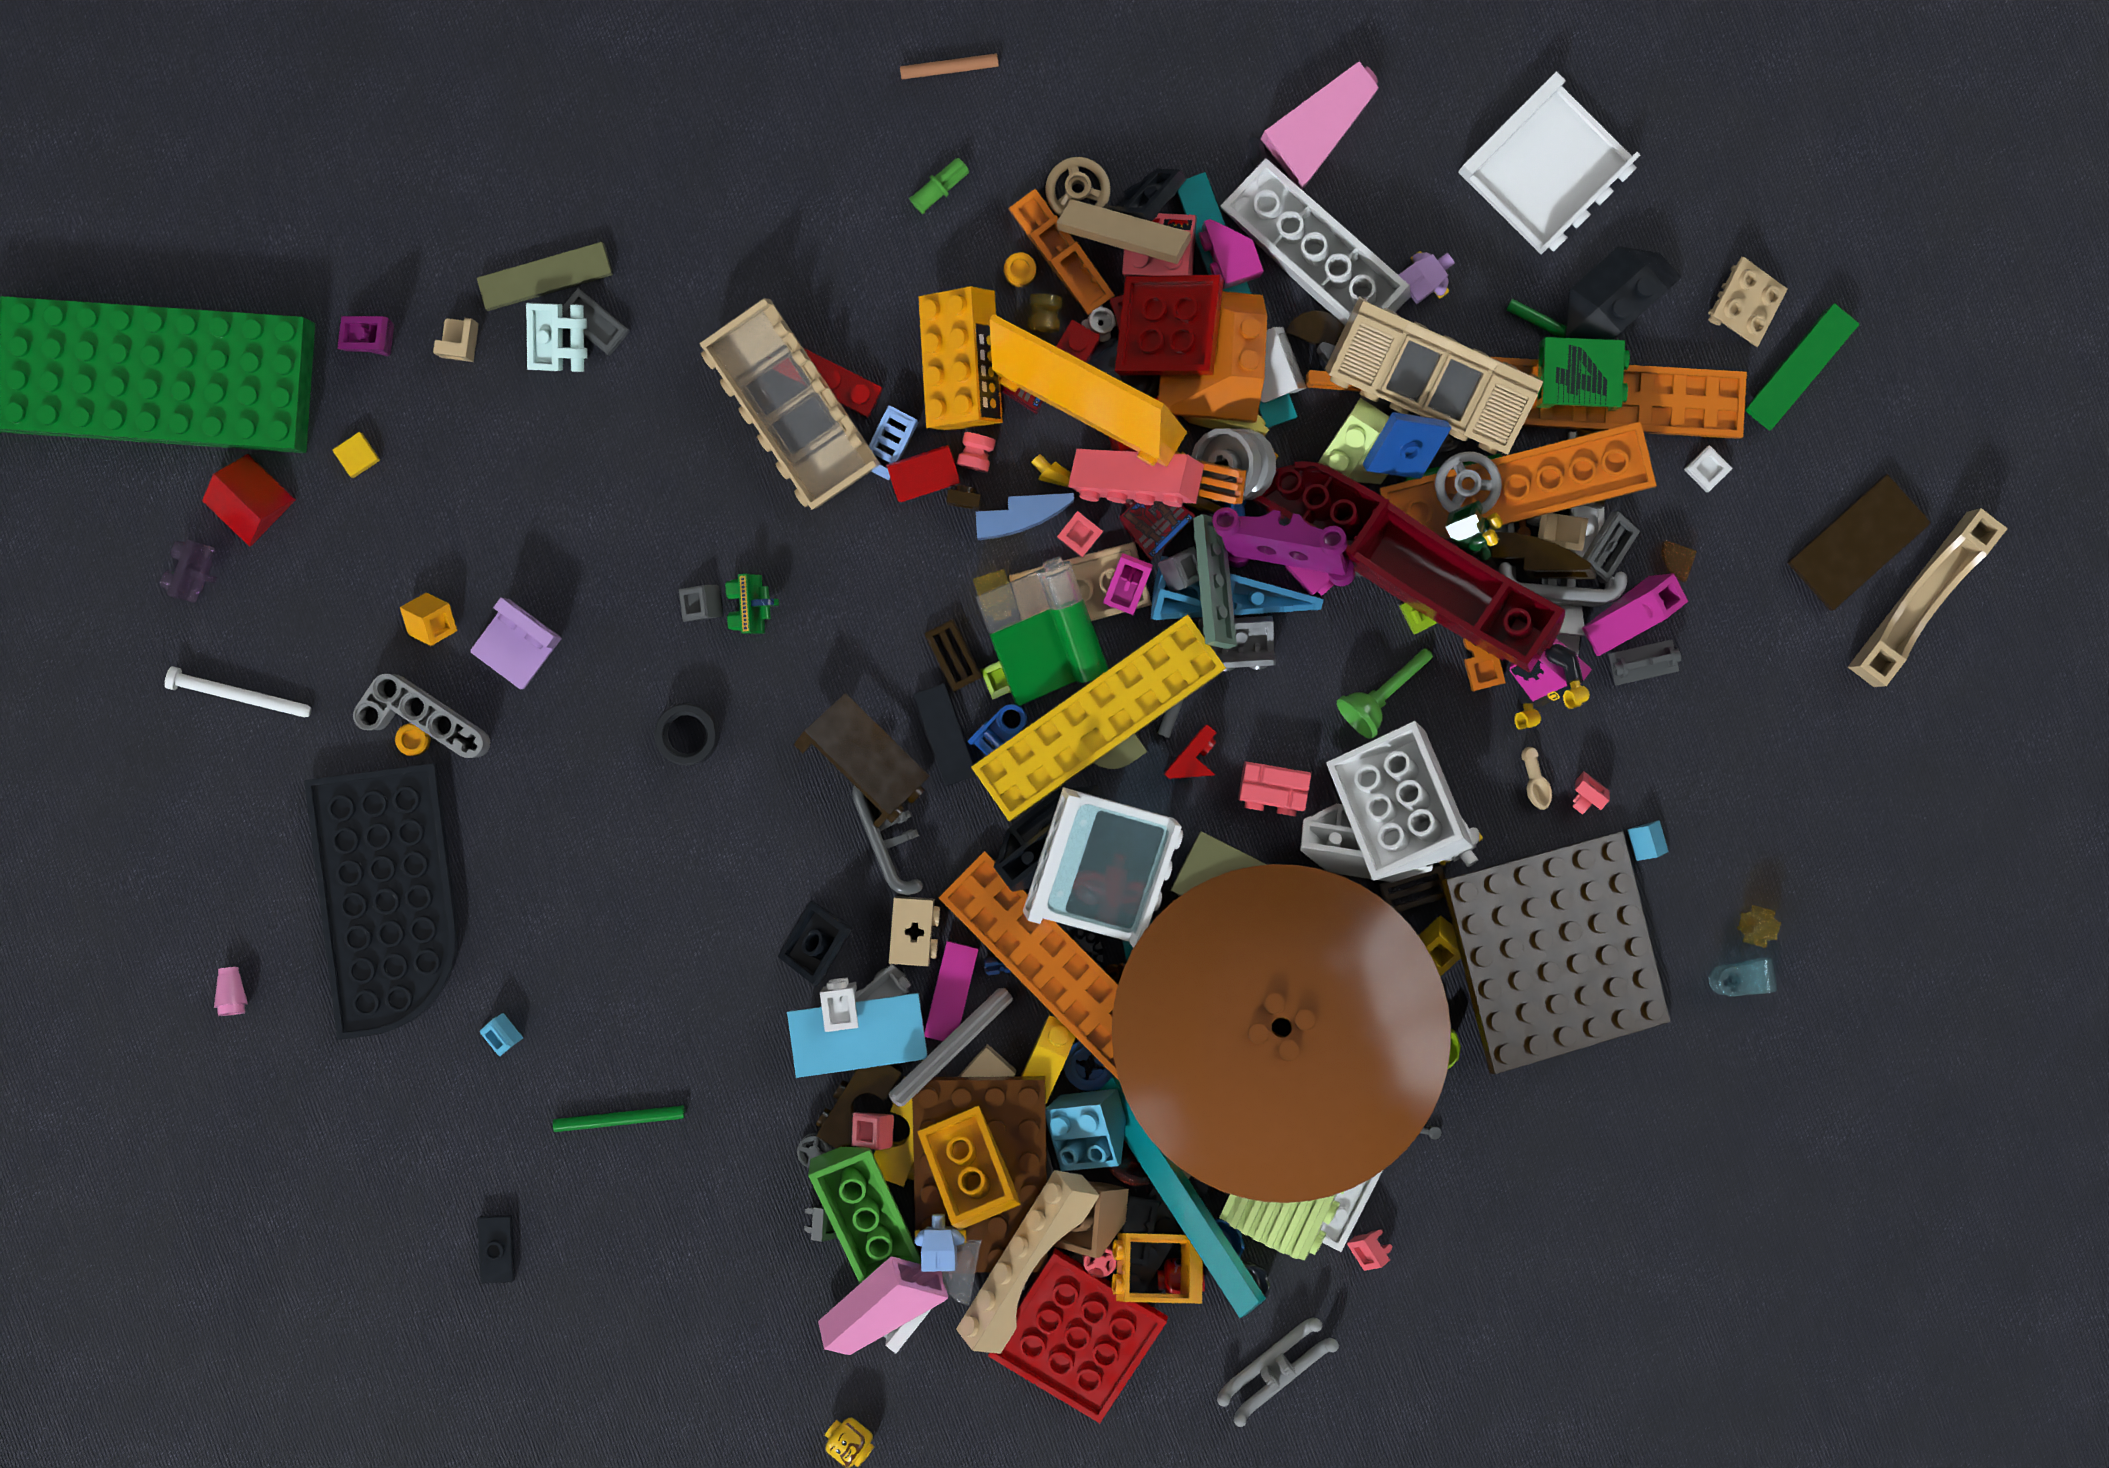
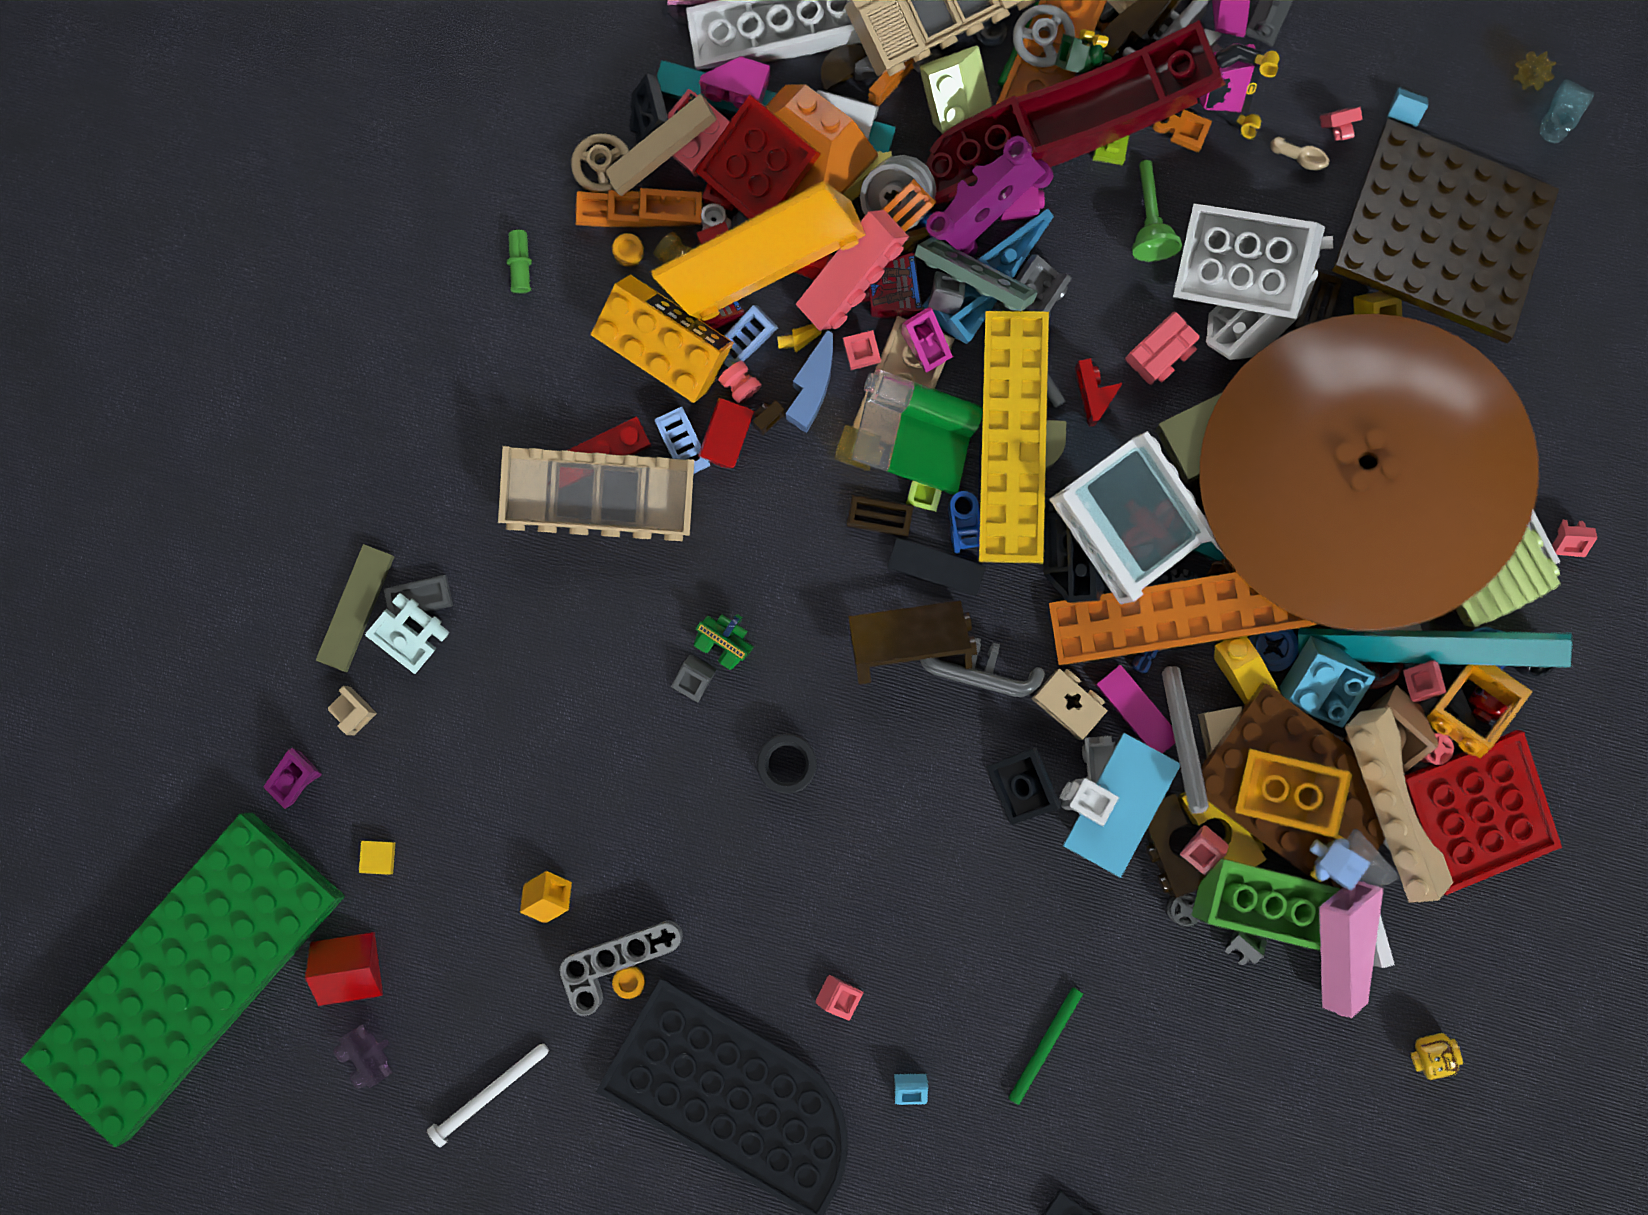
camera: 50 degrees left, 5 degrees down
(515, 643) = (616, 844): lavender bracket -> none
(529, 921) = (839, 997): none -> coral slope
(949, 66) = (436, 189): nougat bar -> none
(1045, 434) = (761, 337): none -> light blue slope
(1146, 1209) = (1424, 681): none -> coral tile
(1275, 1369) = (1615, 679): light grey piece -> none
(1406, 445) = (982, 54): blue plate -> none

